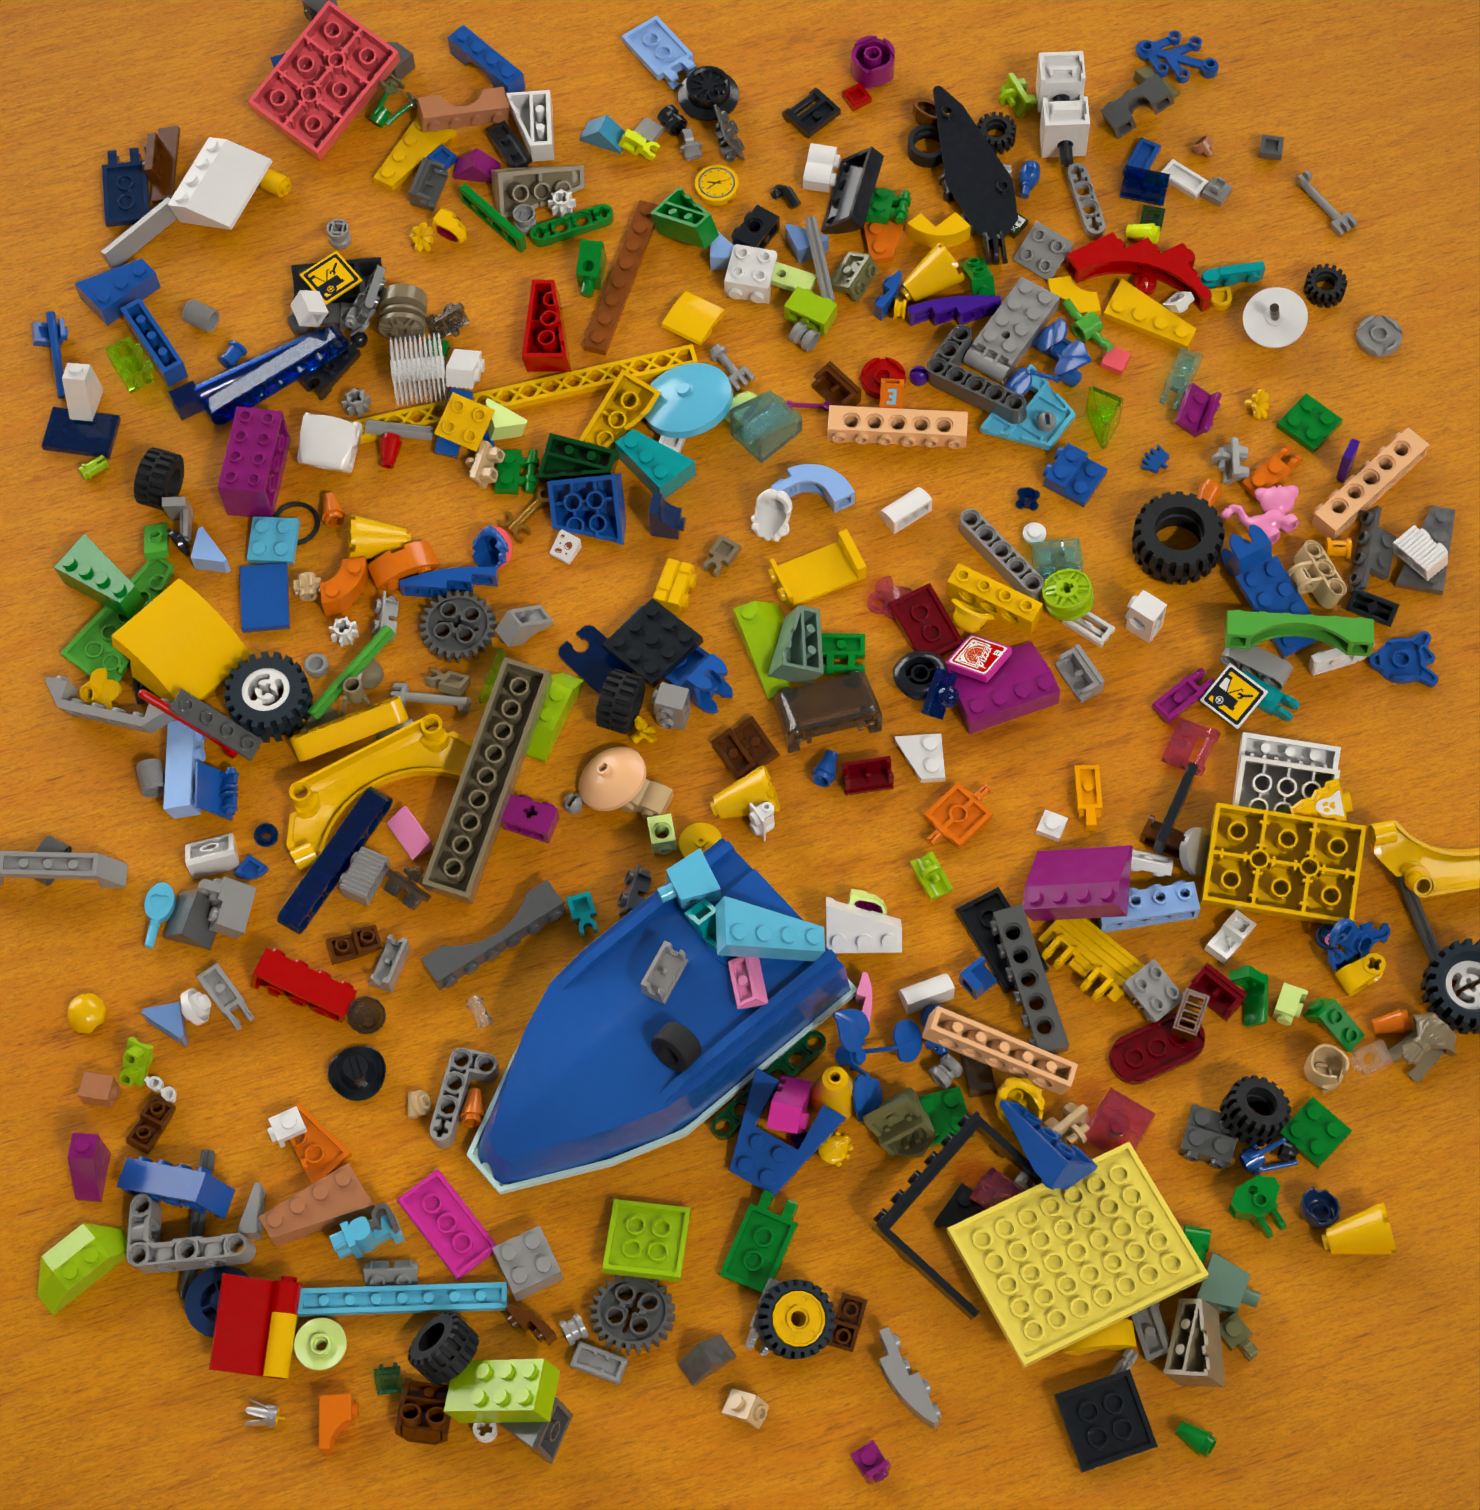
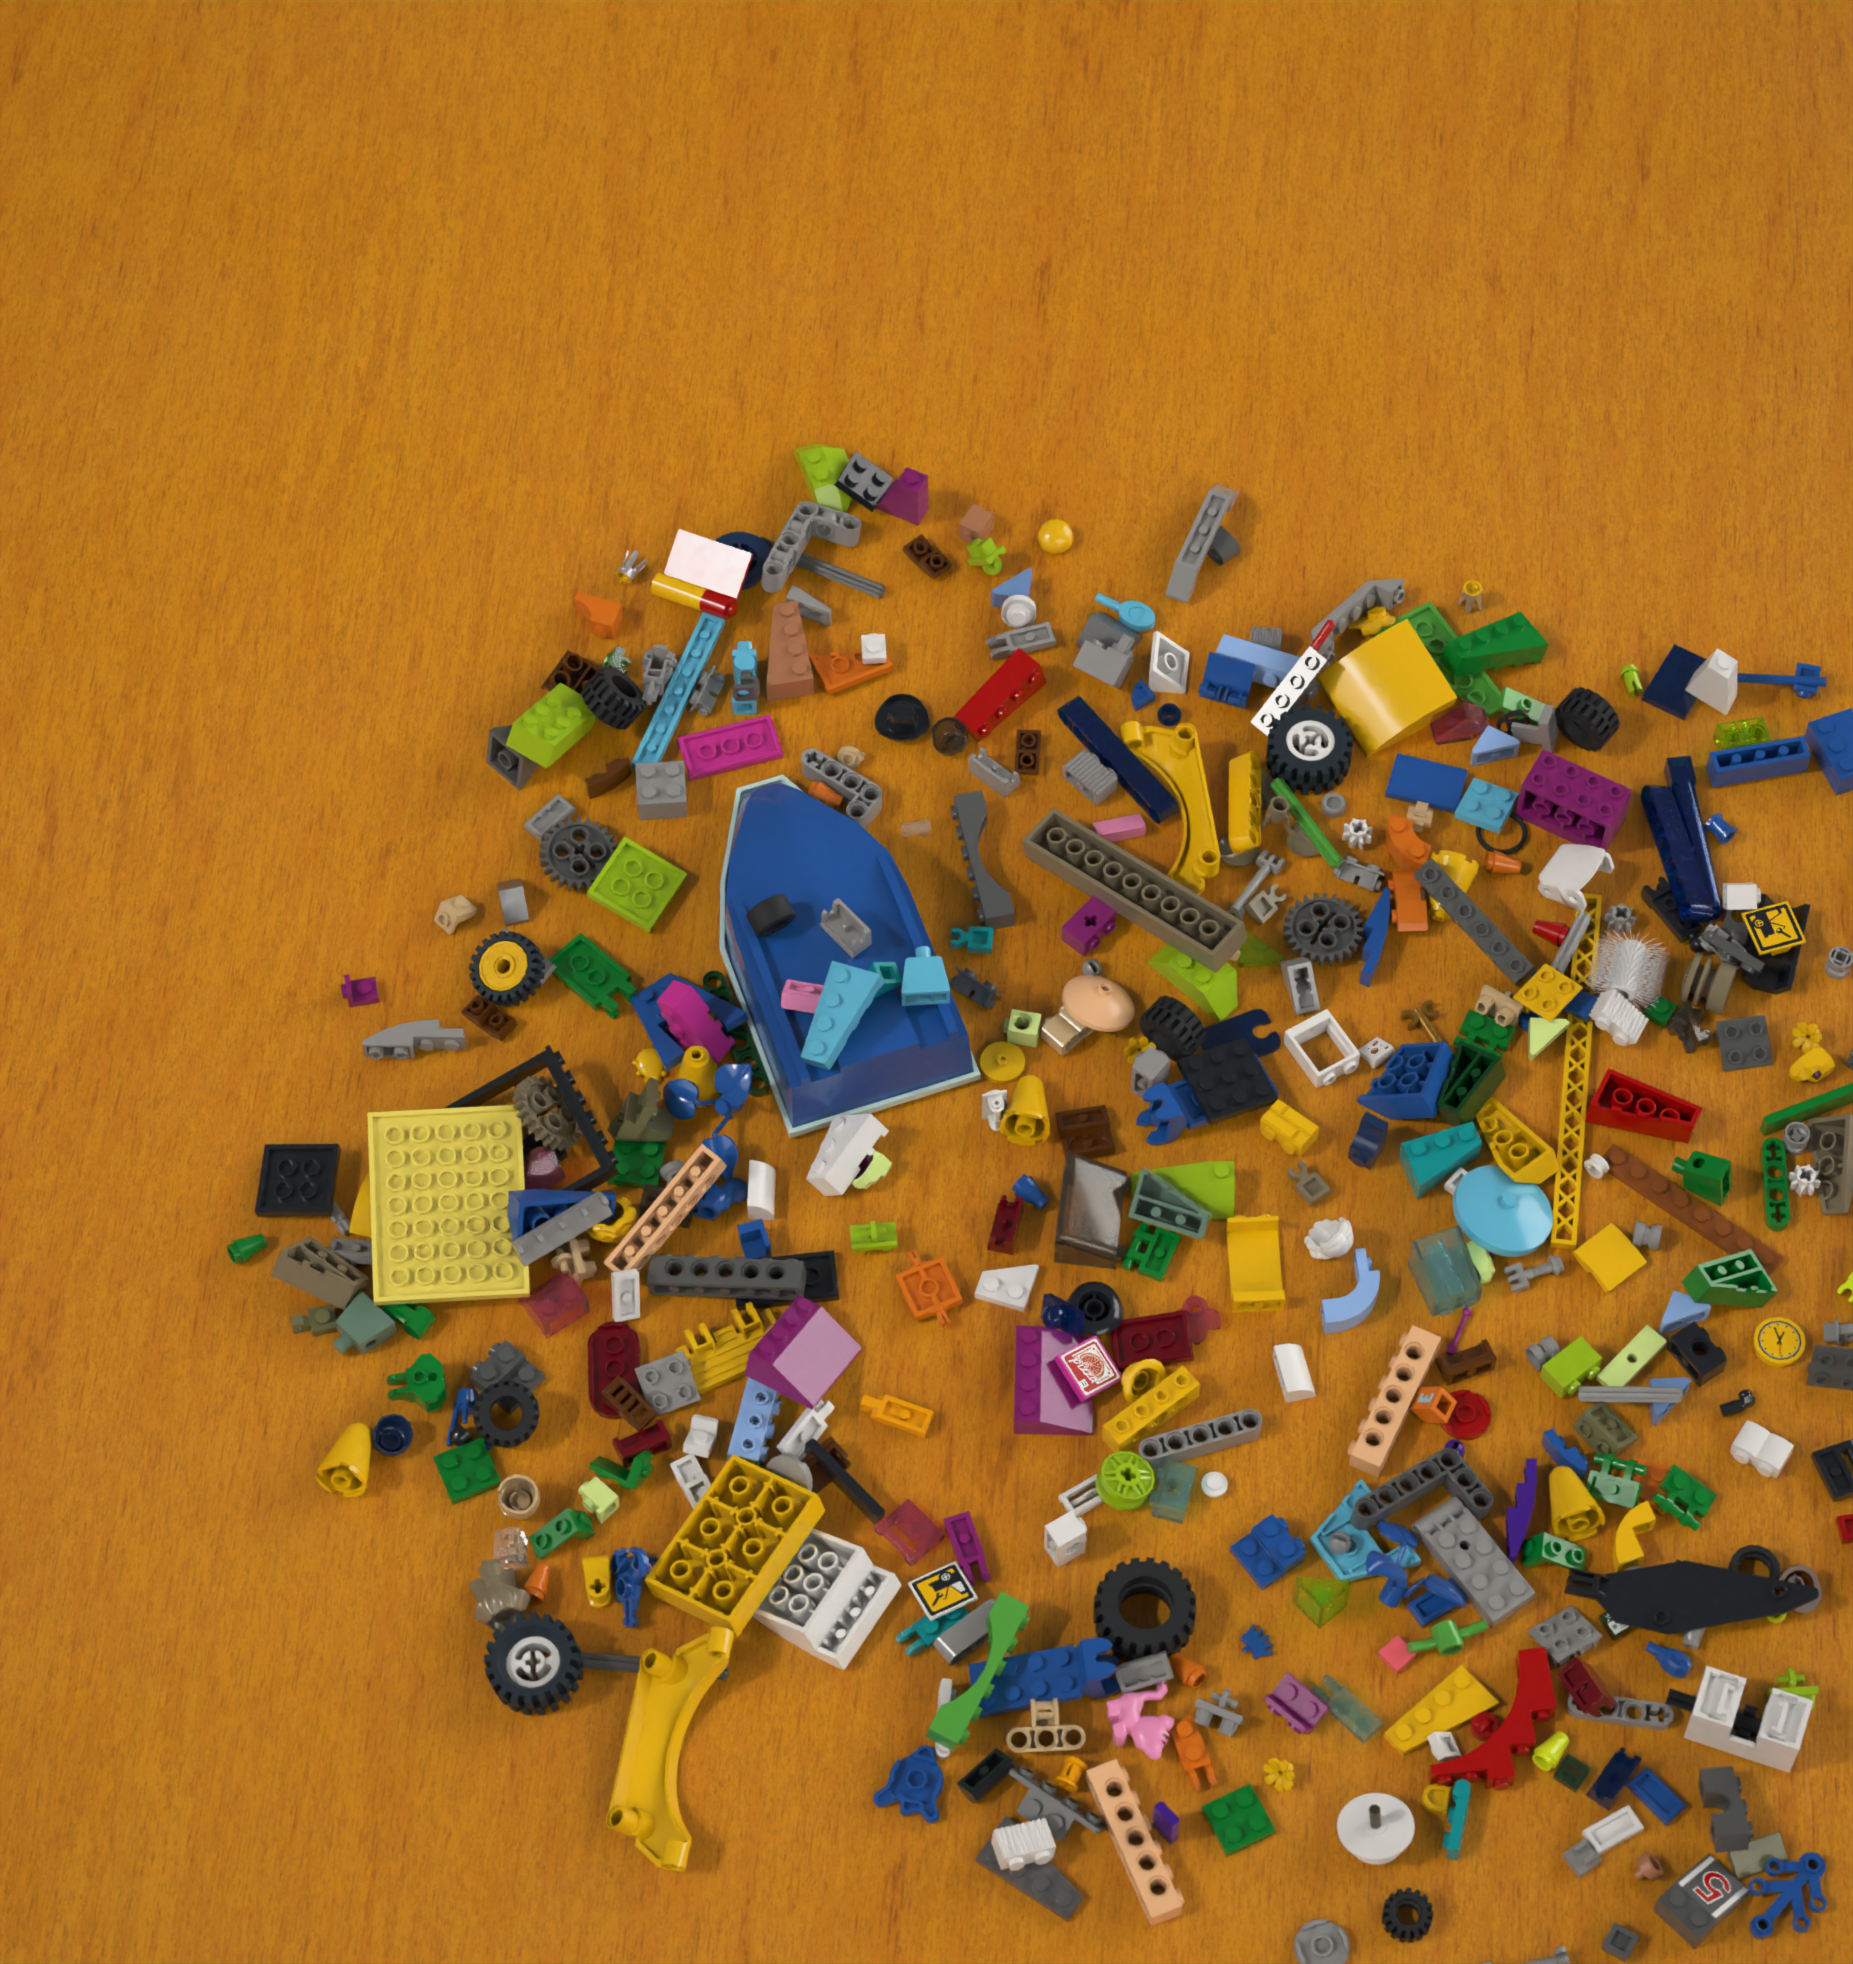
camera: 110 degrees right, 5 degrees down
(41, 617) = (1471, 591): none -> piece
(80, 1216) = (863, 481): none -> plate
(157, 1085) = (962, 572): white piece -> none
(176, 1185) = (852, 551): blue wedge -> none
(190, 574) = (1460, 724): none -> clear pink slope
(200, 315) = (1779, 813): light grey piece -> none
(313, 1334) = (666, 615): yellowish green dish -> none
(398, 881) = (1070, 803): clear smoke hips -> none
(403, 1322) = (657, 671): none -> light grey piece
(413, 500) = (1473, 921): none -> dark grey brick
(445, 281) = (1743, 1042): none -> dark grey hinge
(492, 547) = (1396, 982): blue hair -> none
(569, 604) = (1311, 1028): none -> white window
(573, 1329) = (587, 806): light grey wheel -> none
(611, 350) = (1596, 1166): none -> white bush
(661, 292) = (1644, 1235): none -> light grey wheel
(750, 274) = (1641, 1323): white bracket -> none
(853, 192) = (1712, 1467): black slope -> none
(864, 995) = (782, 1139): bright pink slope -> none
(900, 308) = (1545, 1460): yellow bush -> none
(904, 251) = (1615, 1489): none -> green plate
(941, 1205) = (535, 1099): none -> dark tan gear
(1000, 123) = (1742, 1665): black tyre -> none
(1029, 493) = (1258, 1488): clear blue plate -> none
(1052, 825) = (882, 1371): white plate -> none
(1060, 1131) = (562, 1228): none -> light grey hinge
(1080, 673) = (1033, 1462): light grey hinge -> none
(1083, 300) = (1506, 1640): yellow tile -> none
(1085, 219) = (1586, 1687): none -> dark red hinge
(1089, 1058) = (625, 1295): none -> white plate
(1190, 943) = (701, 1436): none -> white bracket
(1211, 107) = (1700, 1900): none -> dark grey slope
(1231, 518) = (1143, 1672): none -> light grey plate
(1325, 803) = (774, 1607): yellow rock -> none

